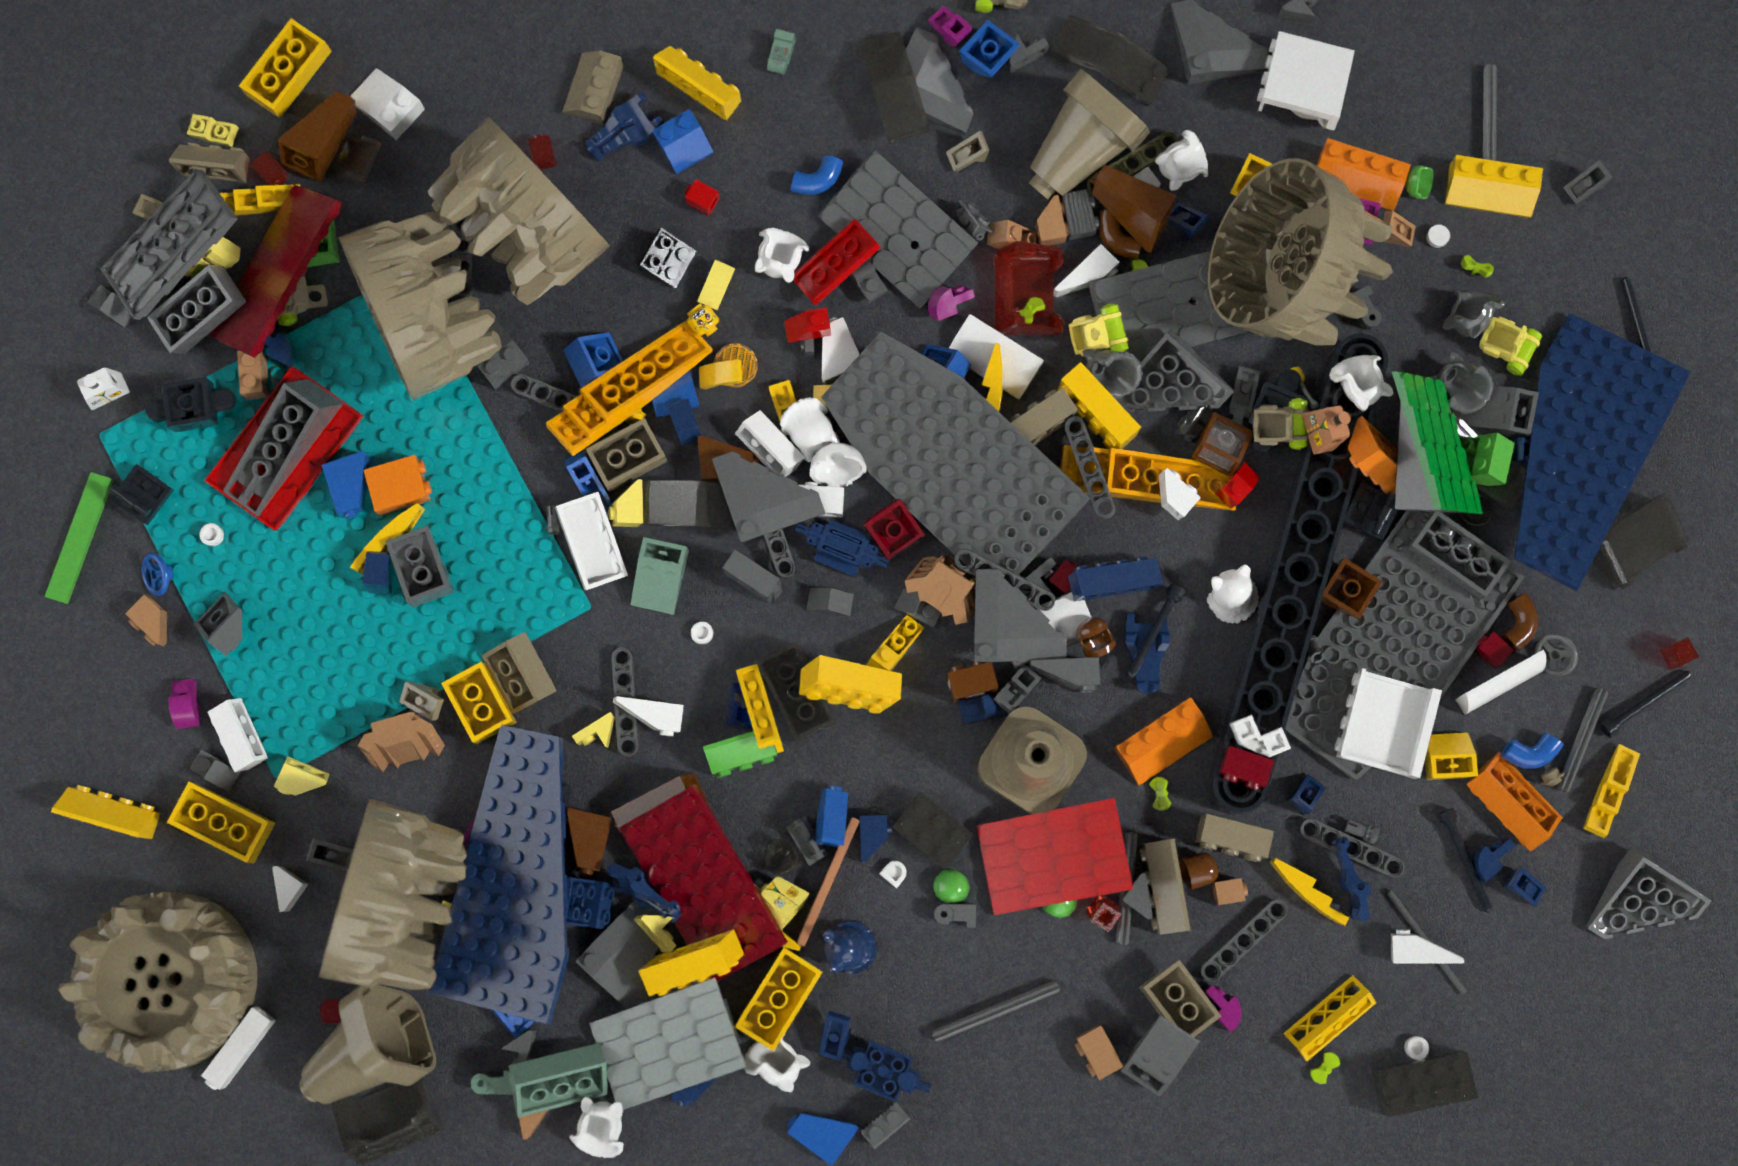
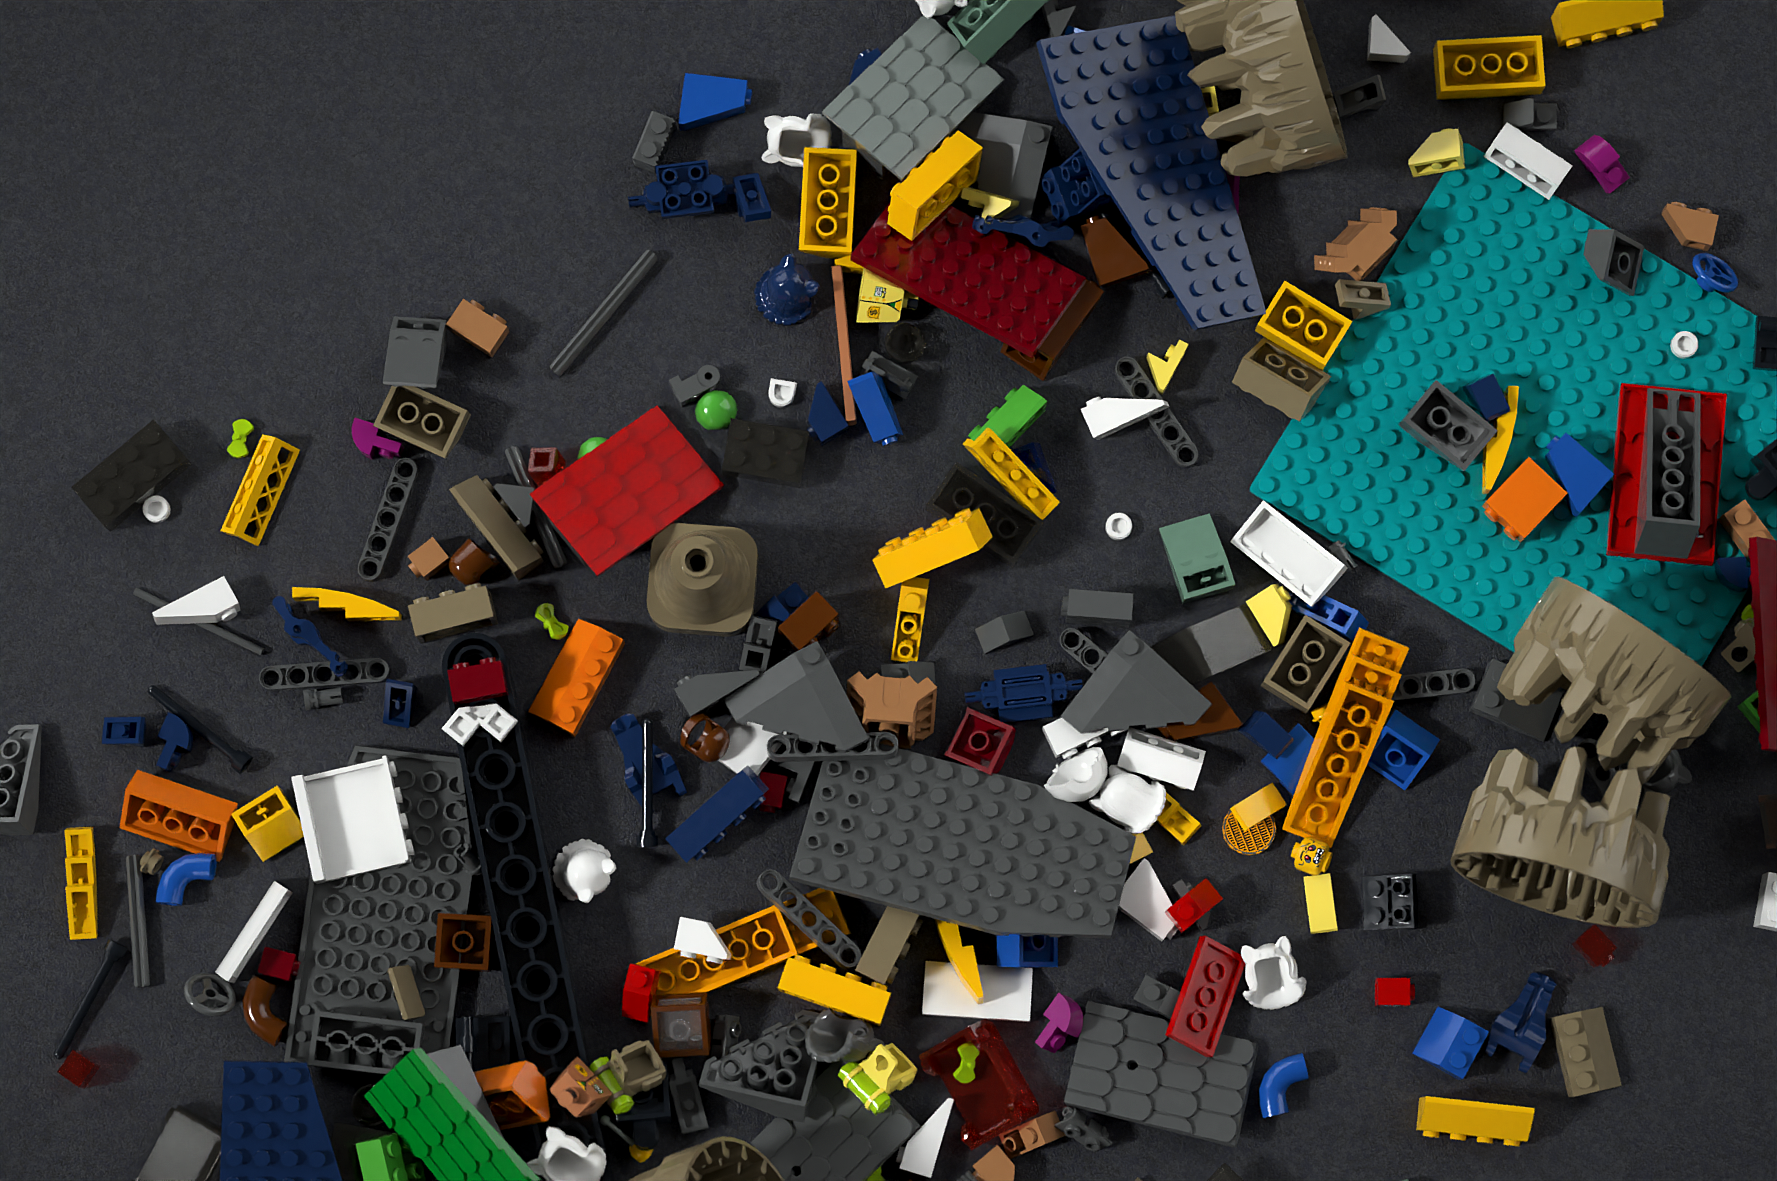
camera: 150 degrees right, 0 degrees up
(1411, 575) = (406, 992): none -> dark tan slope

